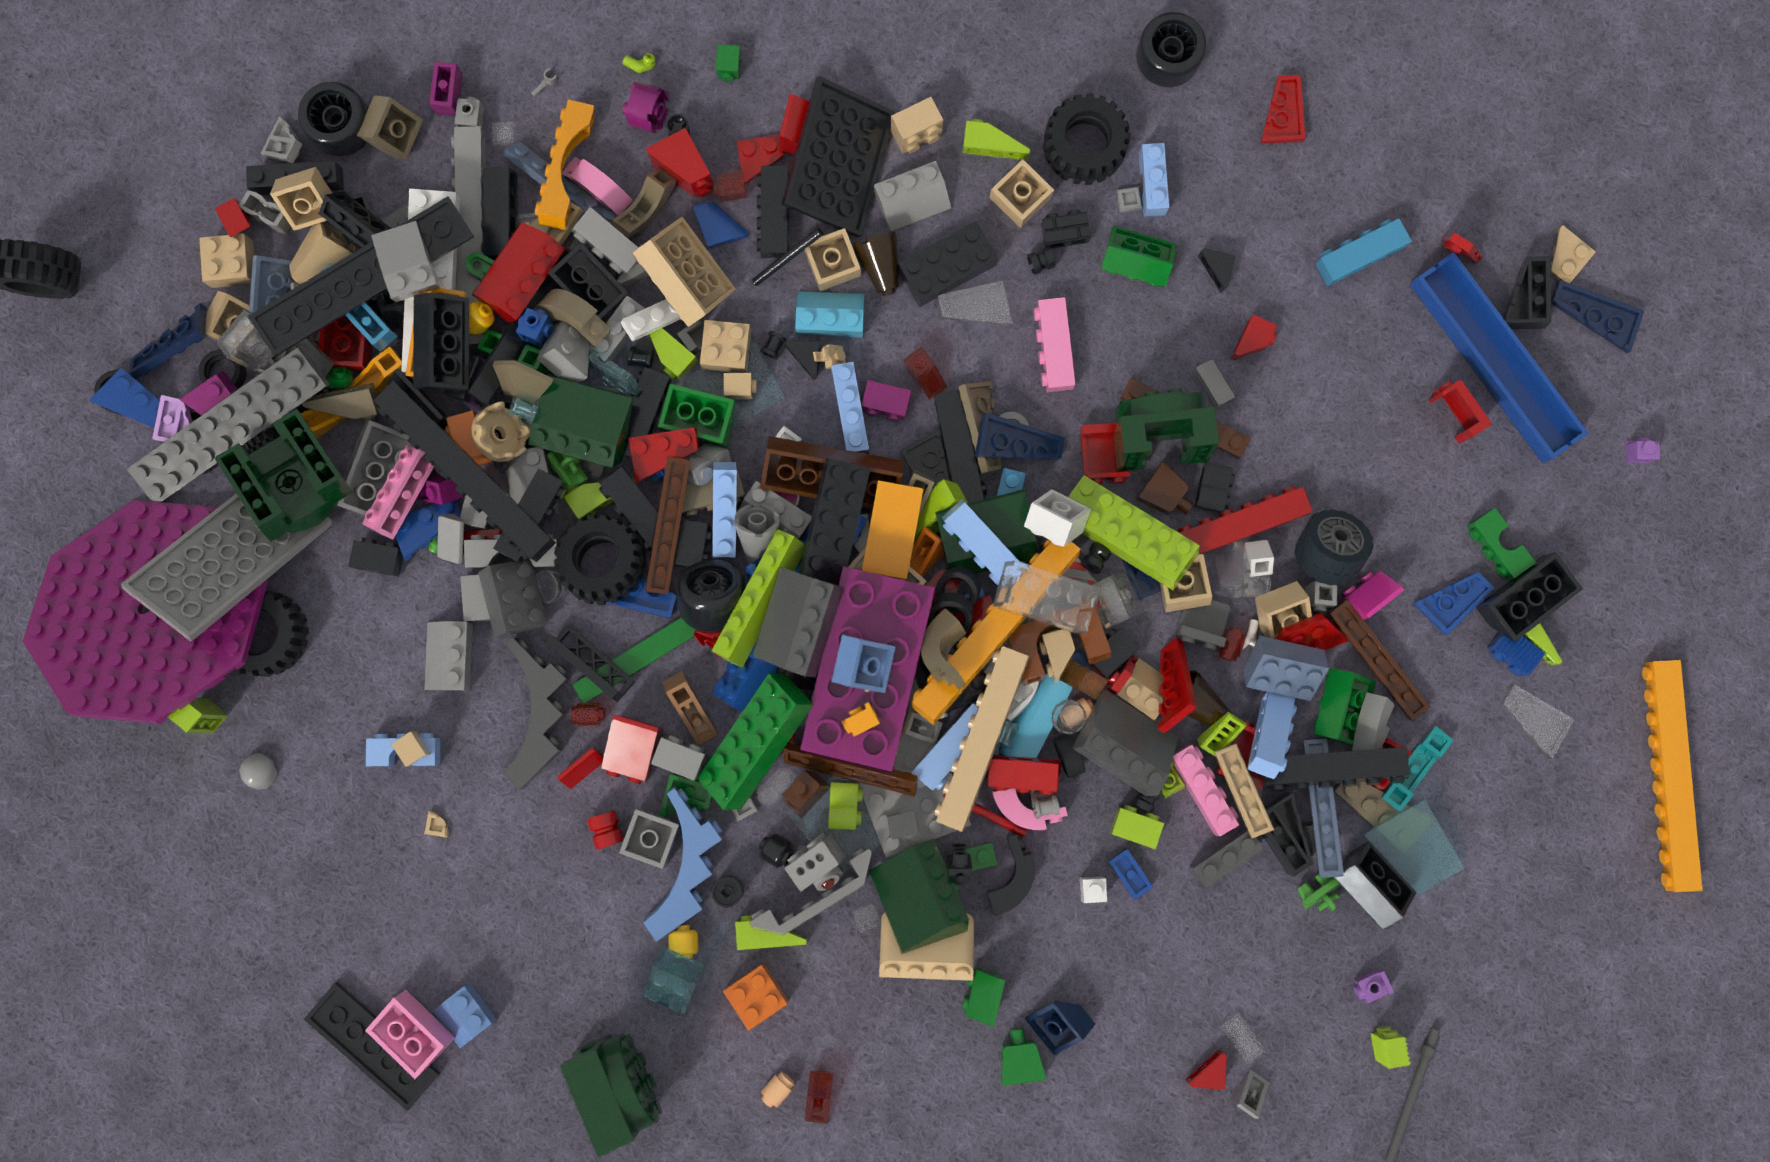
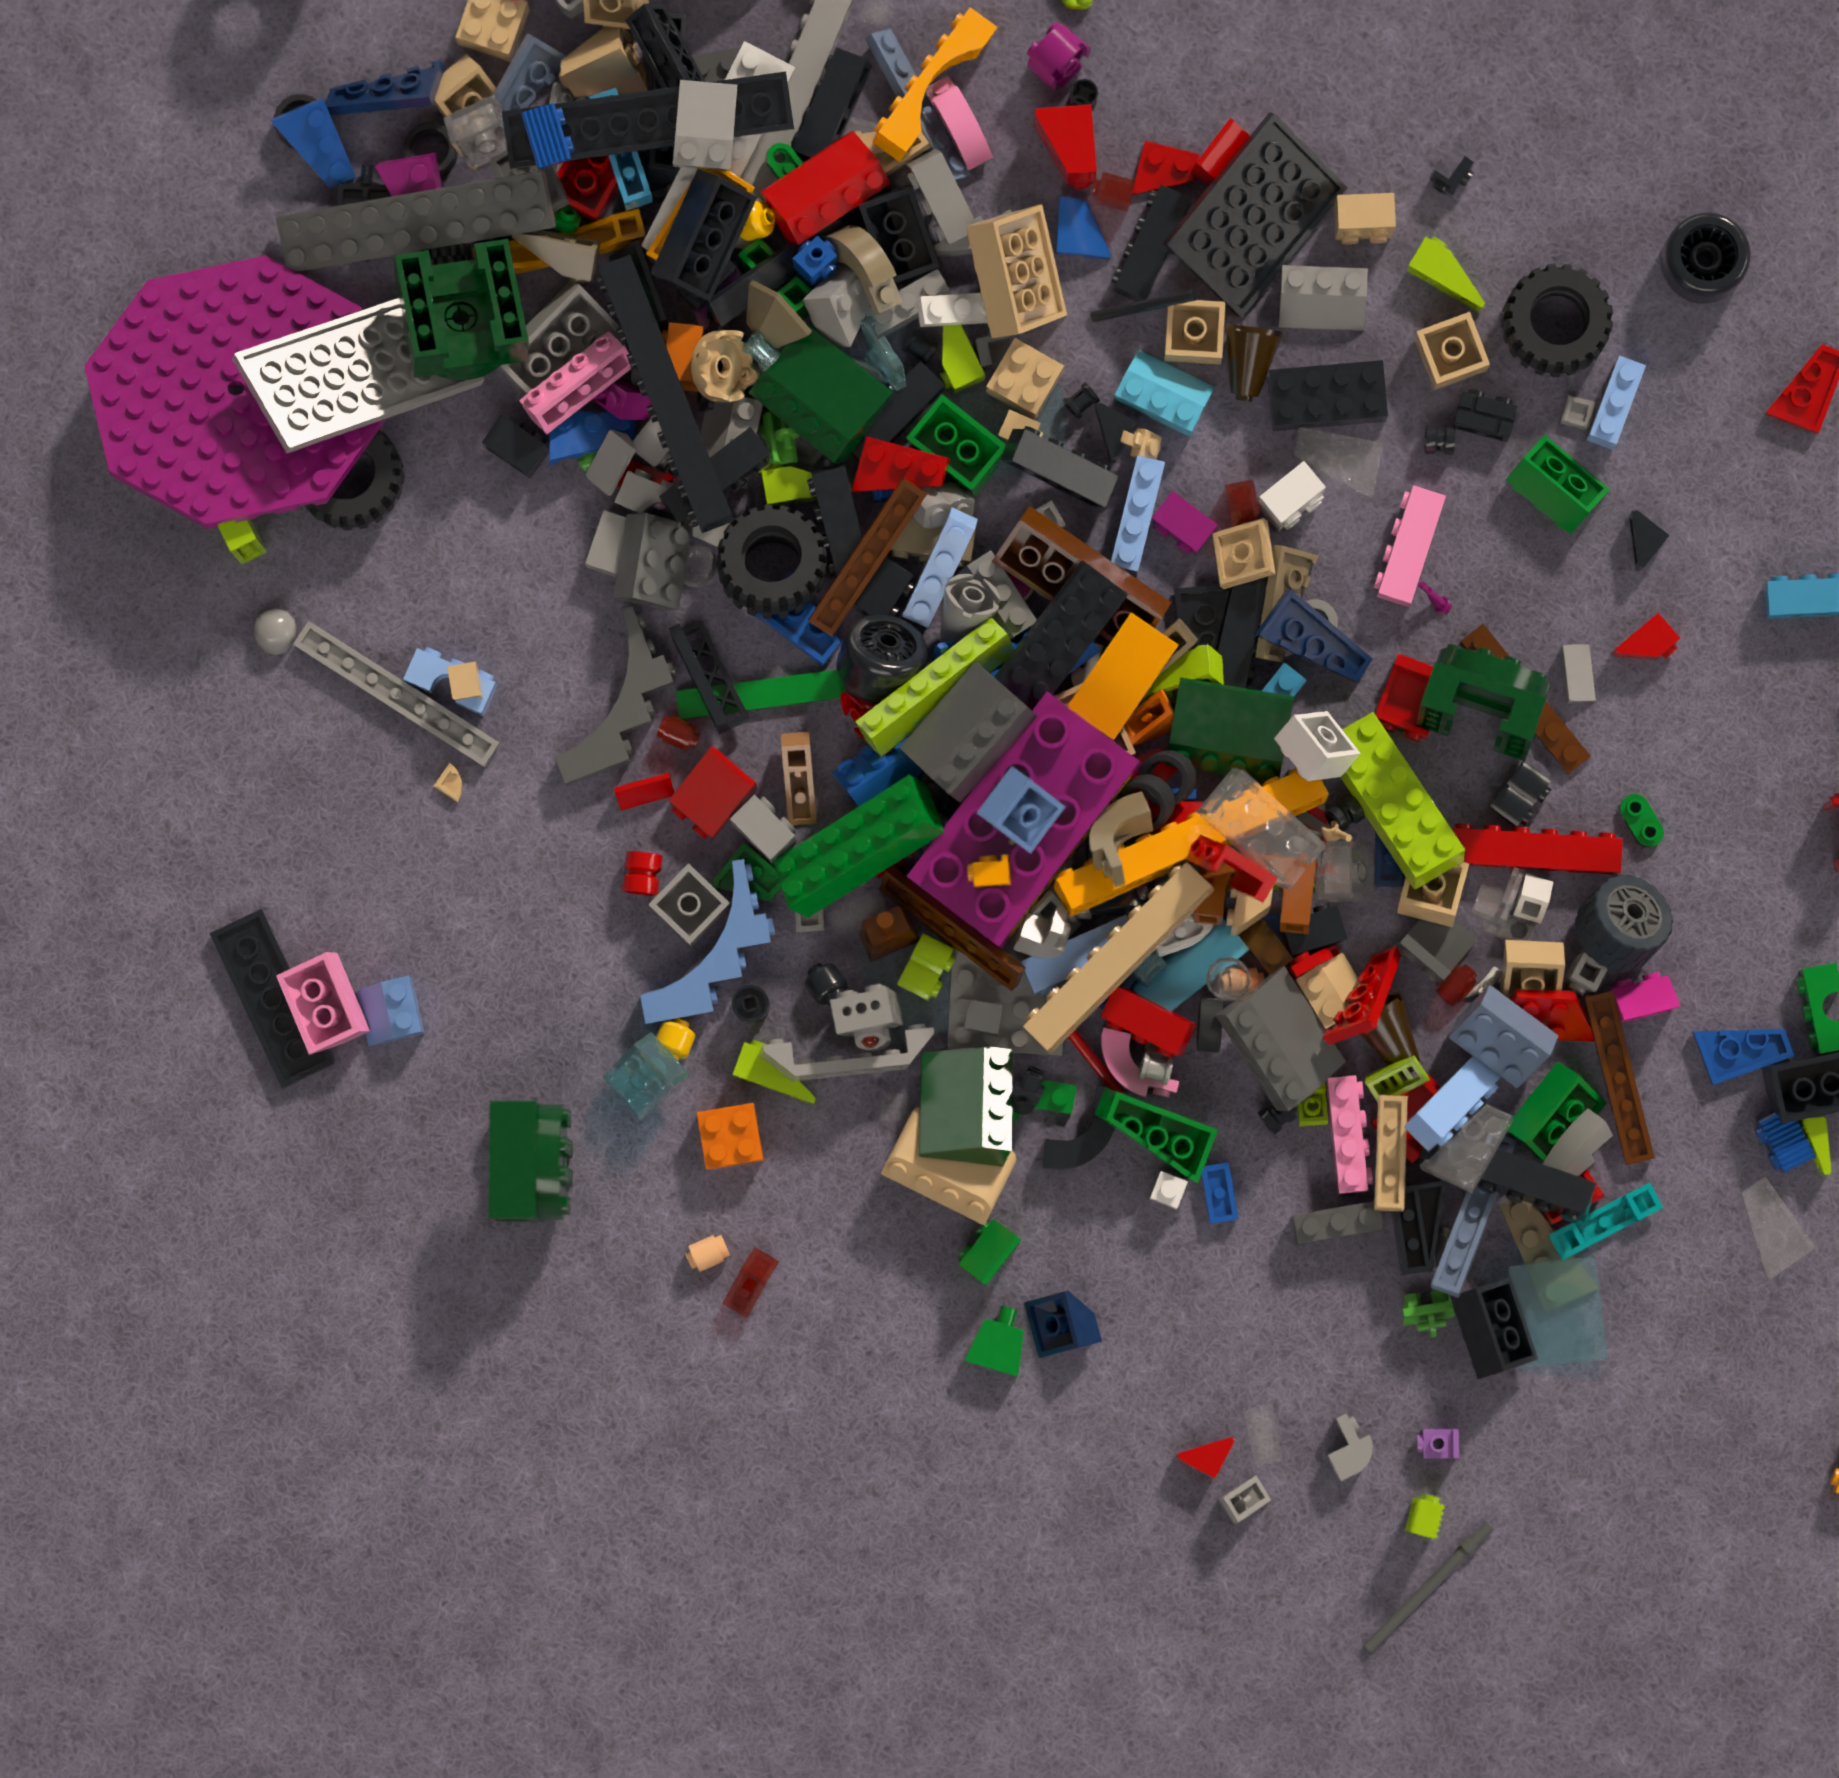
camera: 30 degrees right, 0 degrees up
(171, 418) = (353, 182): lavender wing -> none
(288, 319) = (547, 136): none -> blue brick
(367, 778) = (396, 694): none -> light grey plate
(448, 656) = (548, 595): light grey slope -> none
(647, 205) = (1007, 171): dark tan arch -> none
(728, 62) = (1177, 43): green brick -> none
(778, 399) = (1059, 467): none -> black brick
(919, 747) = (1042, 936): none -> light grey brick
(939, 402) = (1243, 553): none -> tan tile
(954, 346) = (1291, 496): none -> white brick
(965, 79) = (1461, 175): none -> black bracket
(977, 538) = (1215, 728): light blue brick -> none
(1051, 637) = (1249, 878): none -> red panel
(1071, 850) = (1166, 1135): none -> green wedge
(1094, 376) = (1441, 603): none -> magenta piece
(1096, 575) = (1335, 833): none -> tan hand
(1137, 828) = (1251, 1143): lime brick -> none
(1165, 491) = (1461, 774): reddish brown torso -> none
(1303, 764) = (1471, 1150): none -> clear wing
(1307, 468) = (1640, 821): none -> green plate
(1315, 1024) = (1353, 1456): none -> light grey brick

